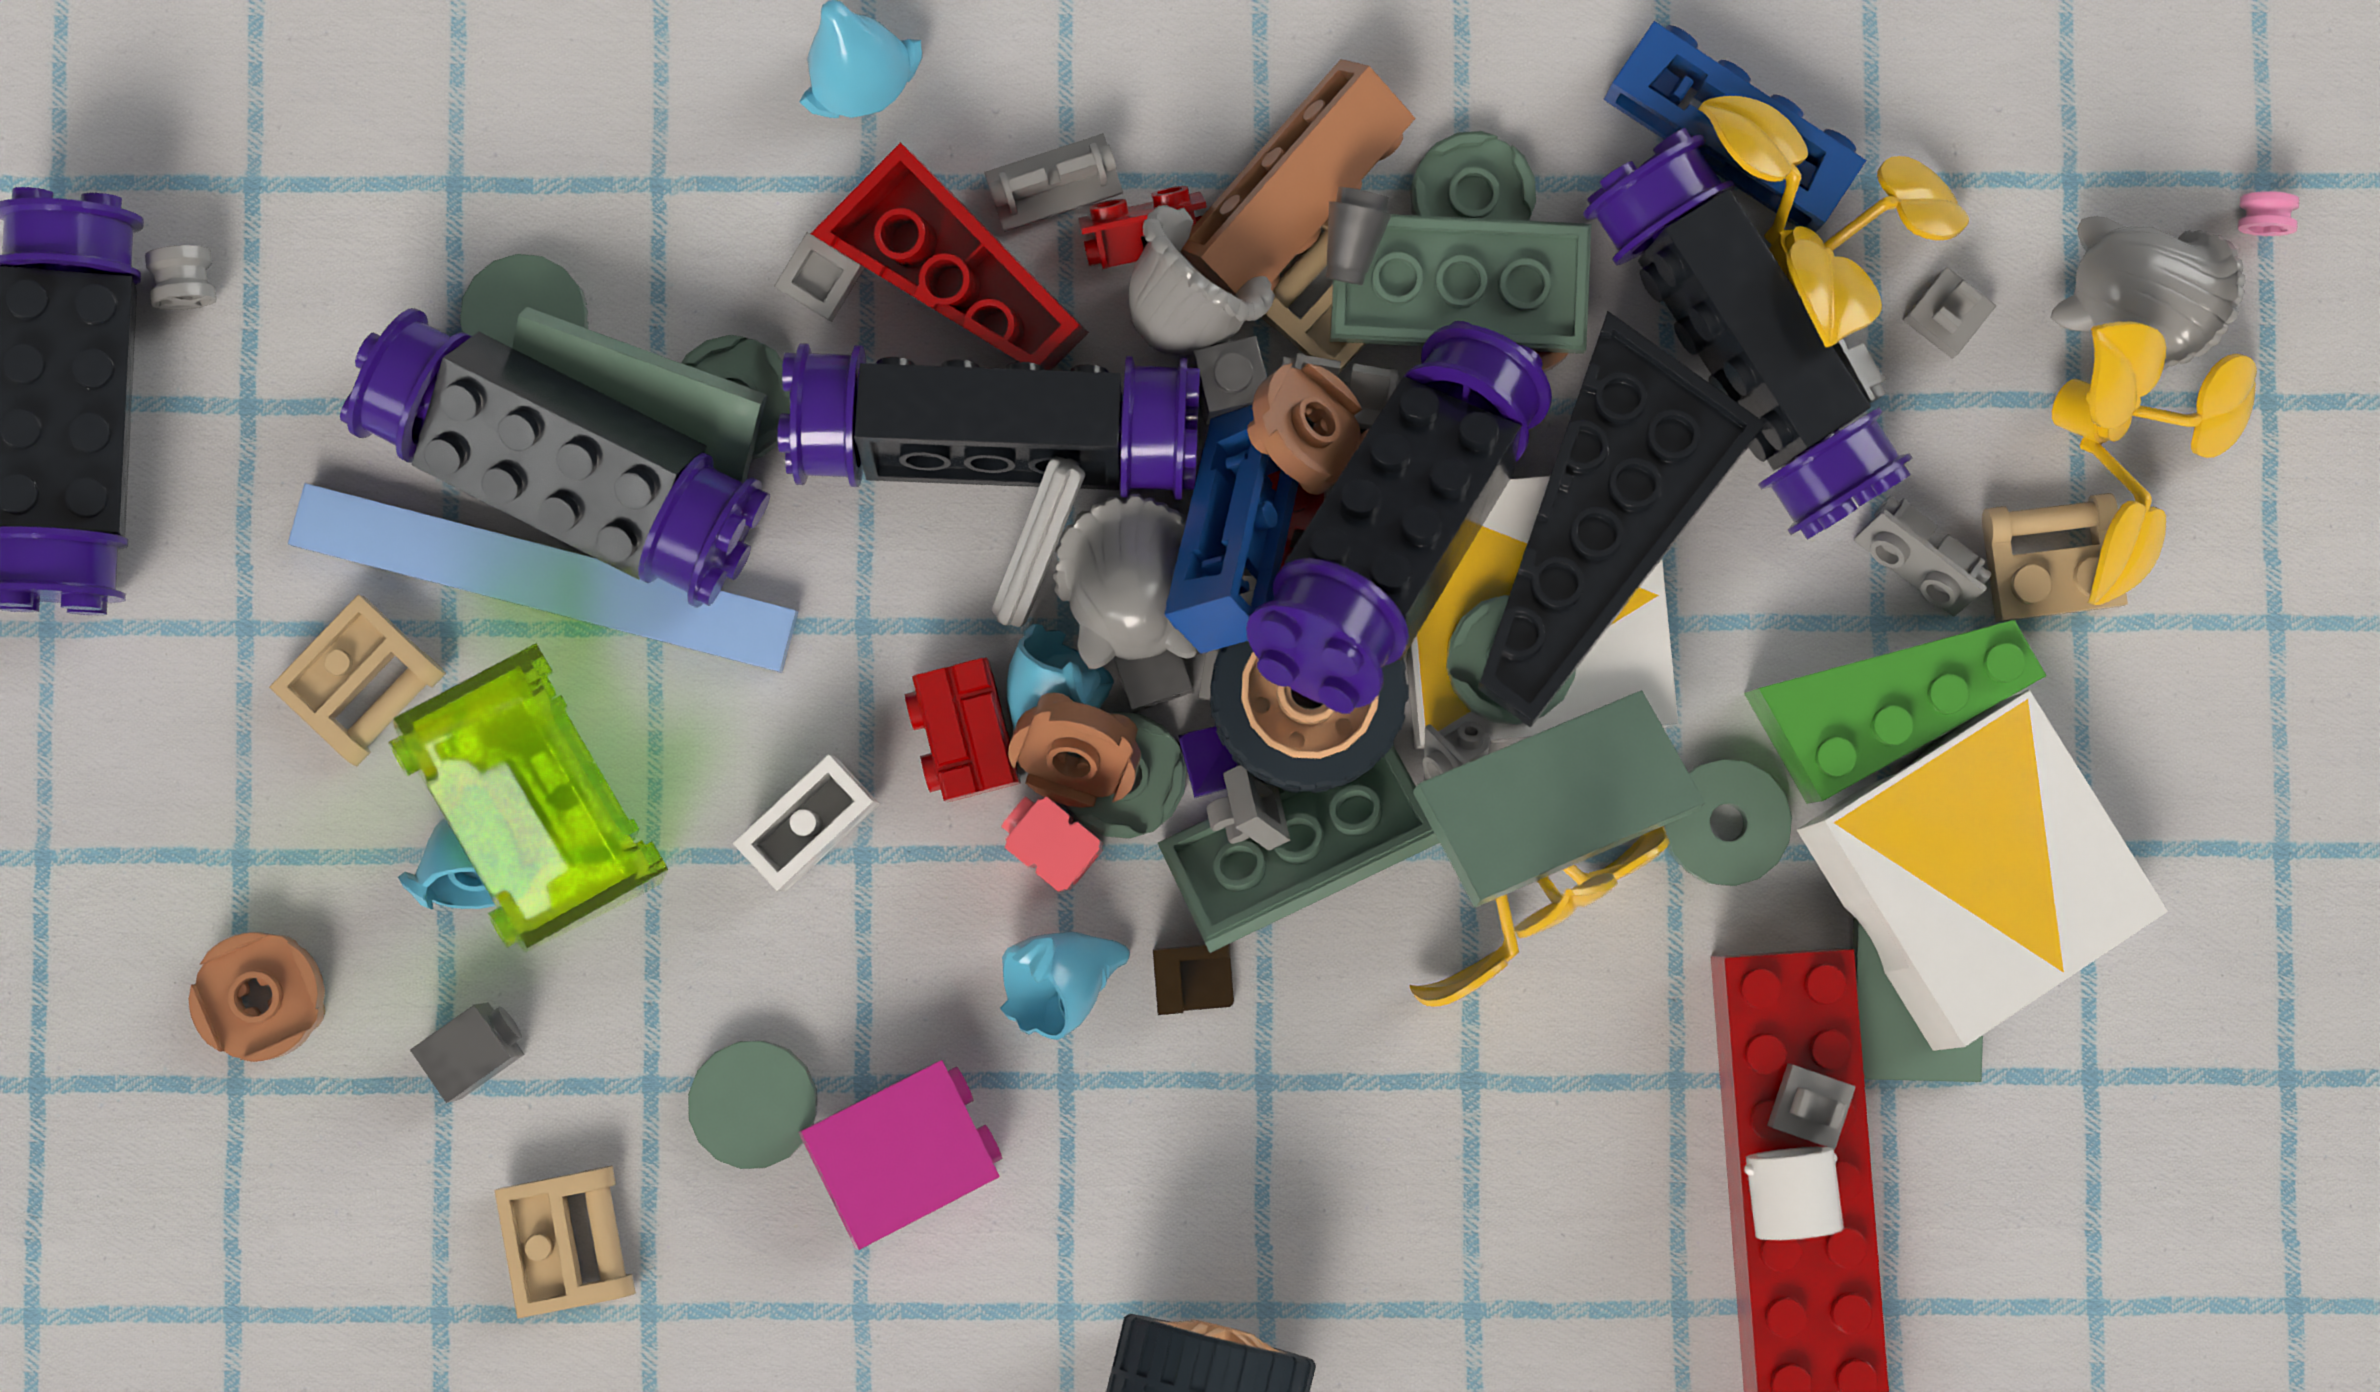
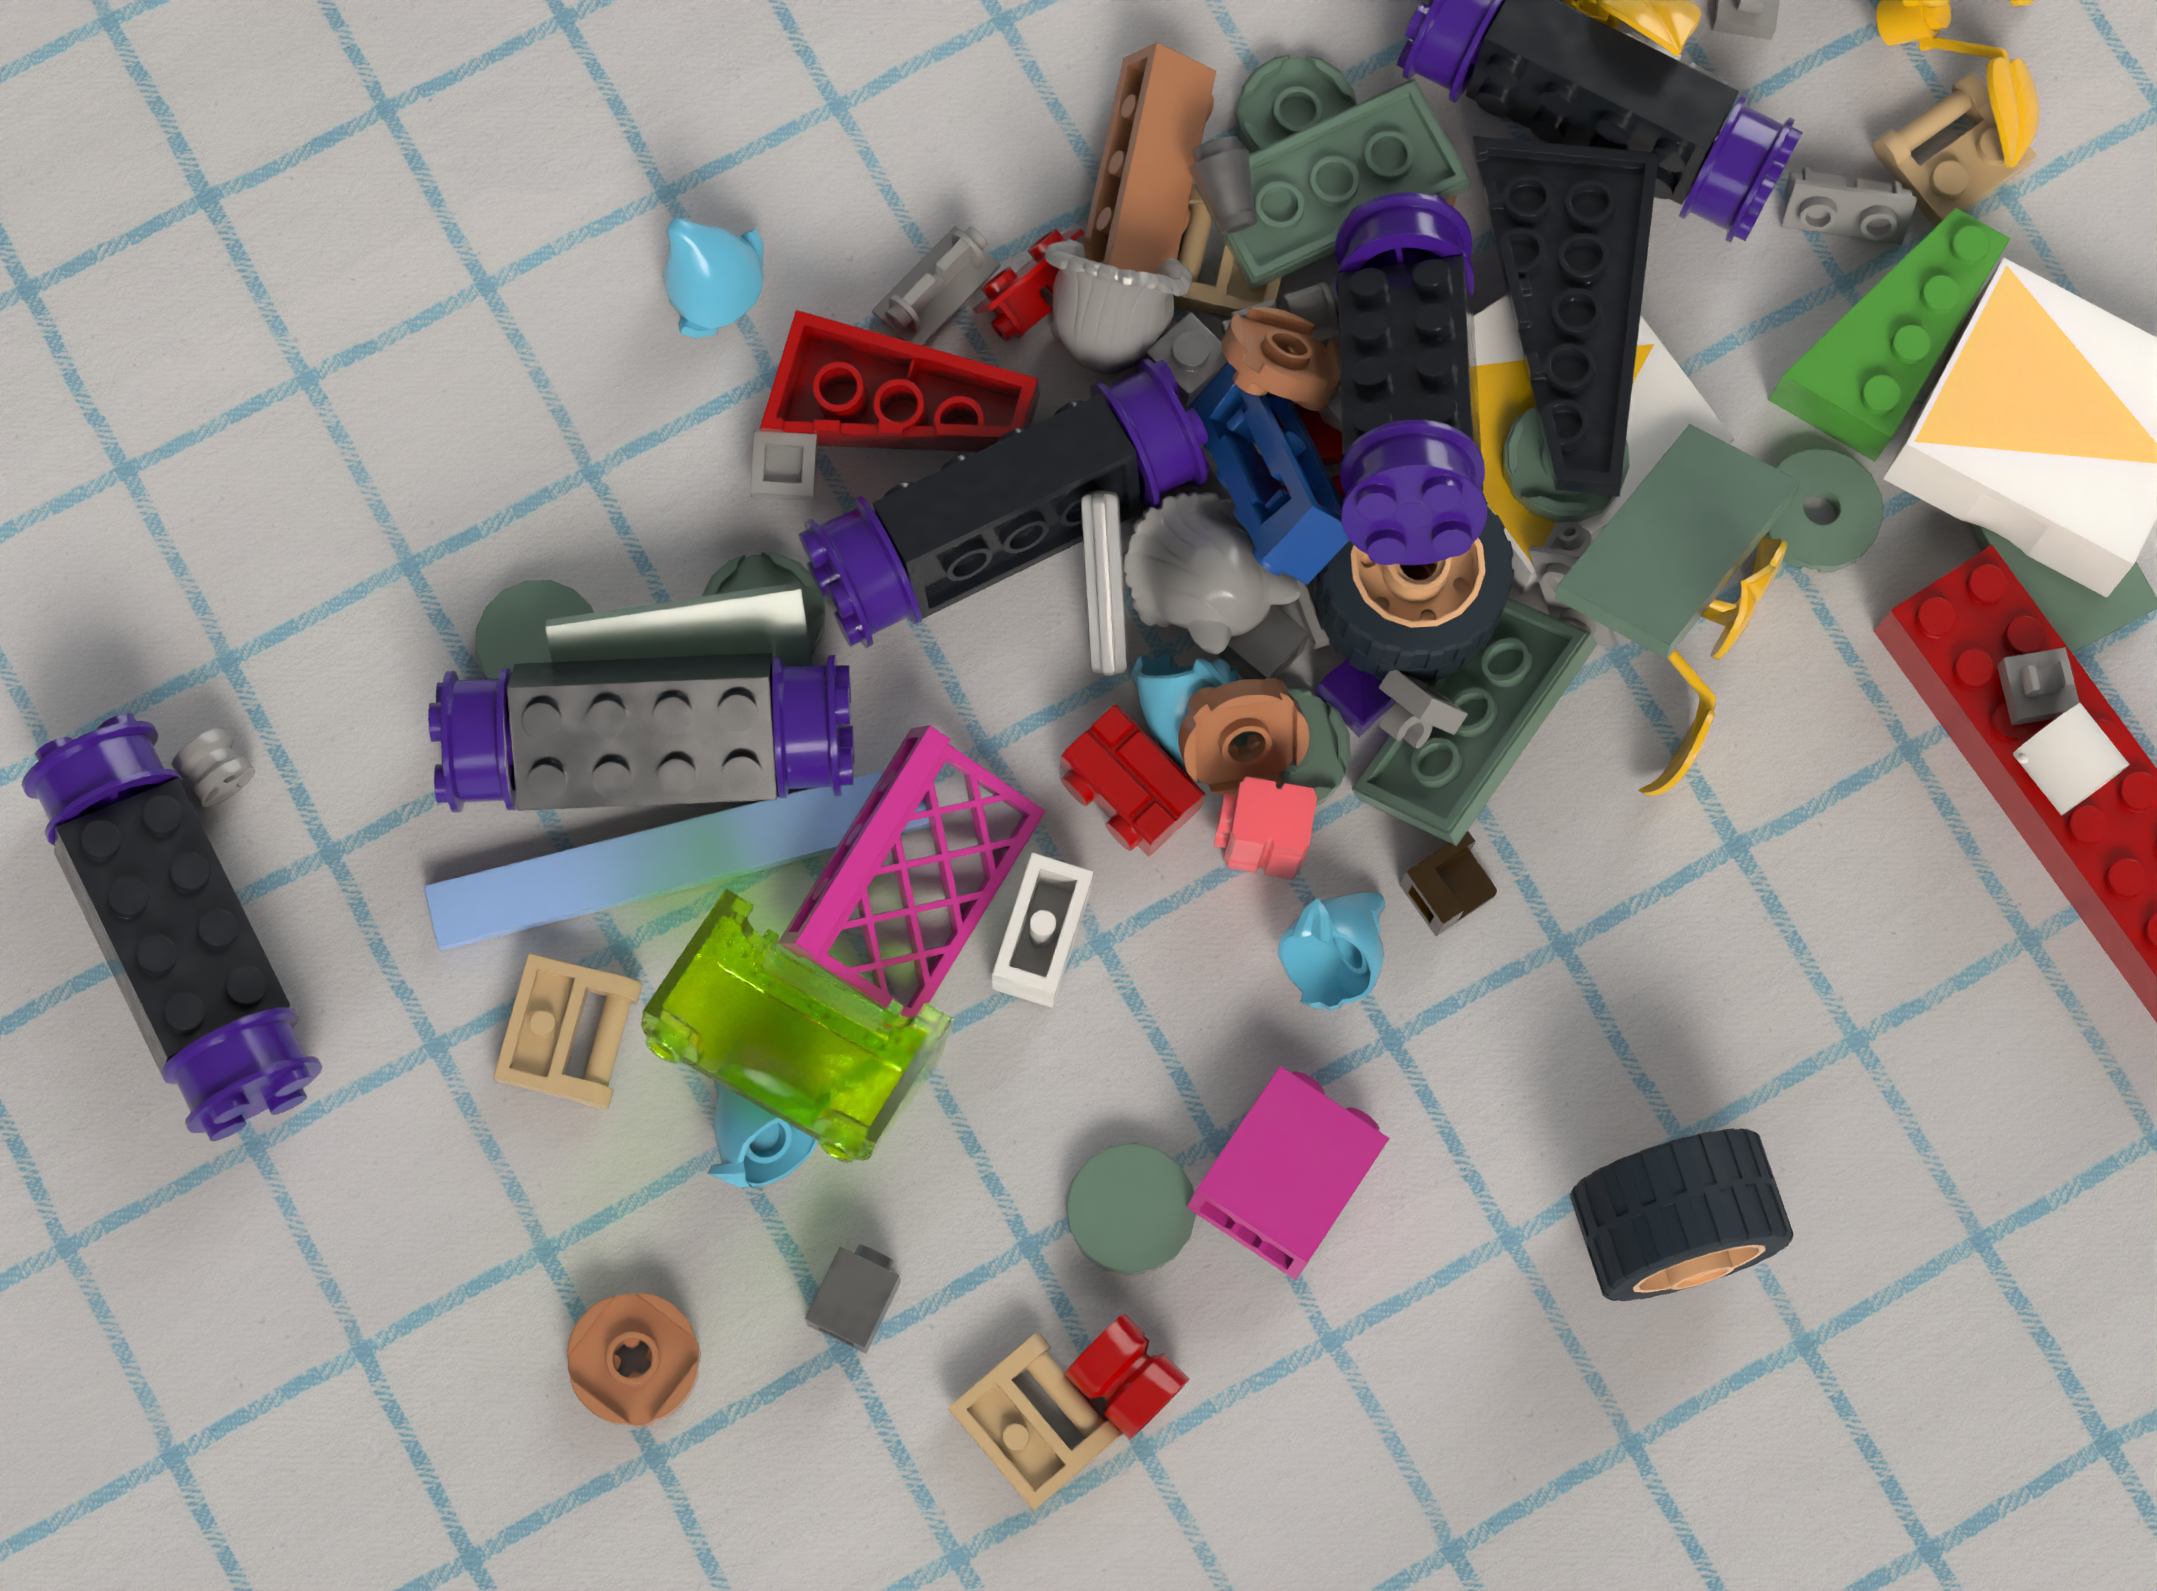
camera: 30 degrees left, 10 degrees down
(660, 1251) = (1126, 1376): none -> red wheel
(697, 663) = (867, 845): none -> dark pink fence

